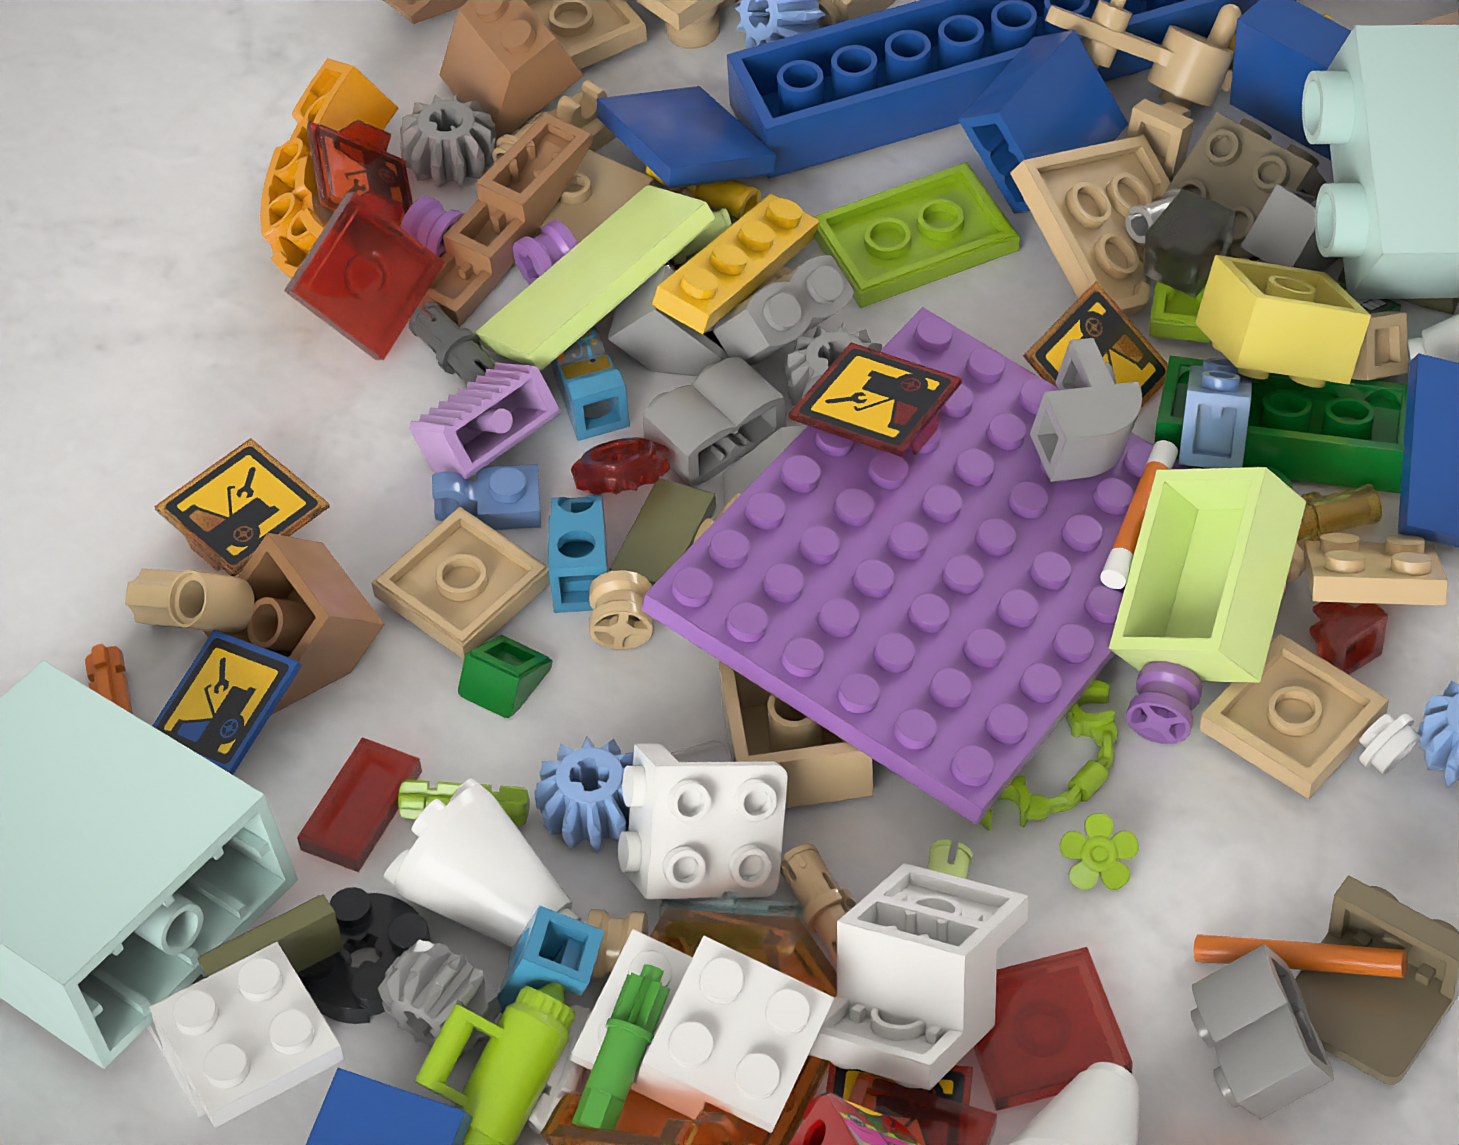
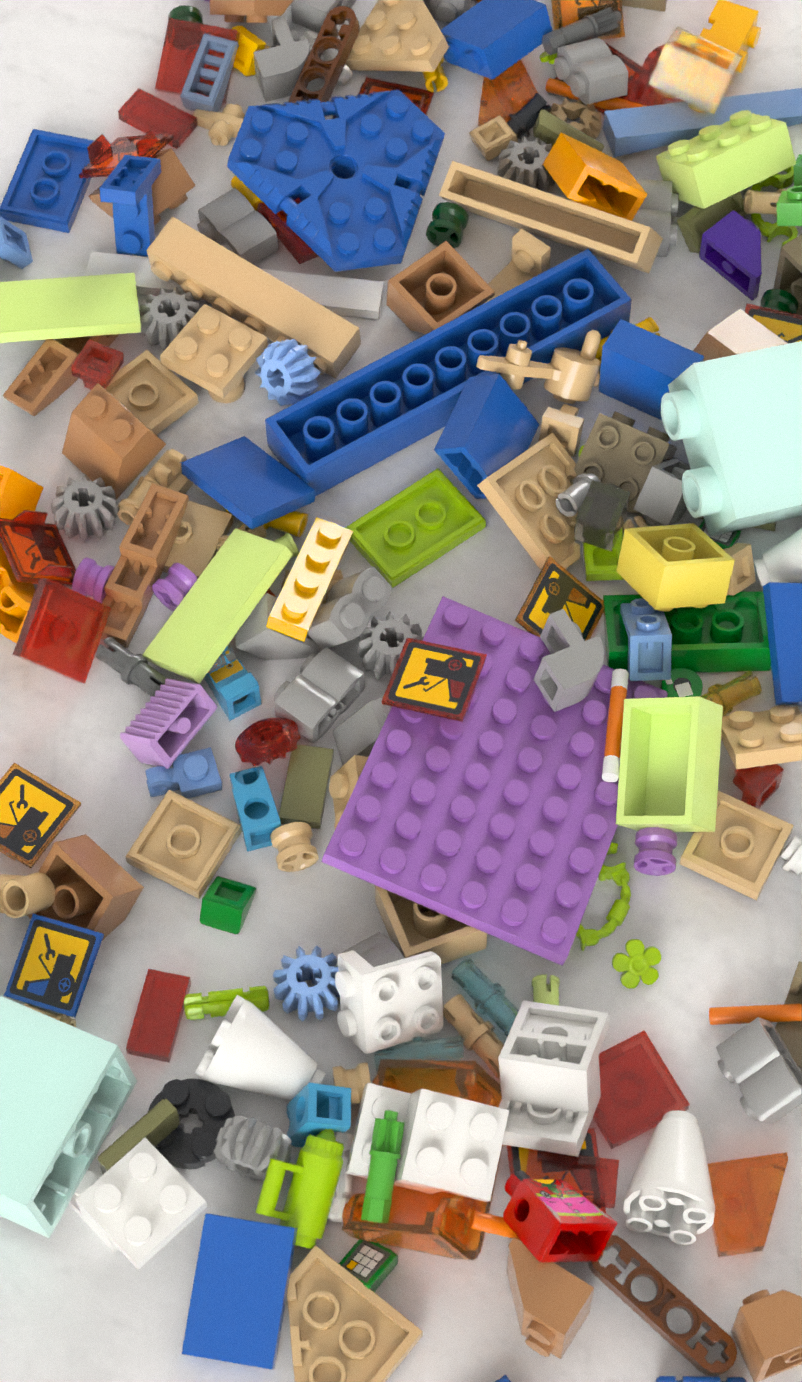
camera: 15 degrees left, 10 degrees up
(856, 858) = (488, 996): none -> clear light blue pin

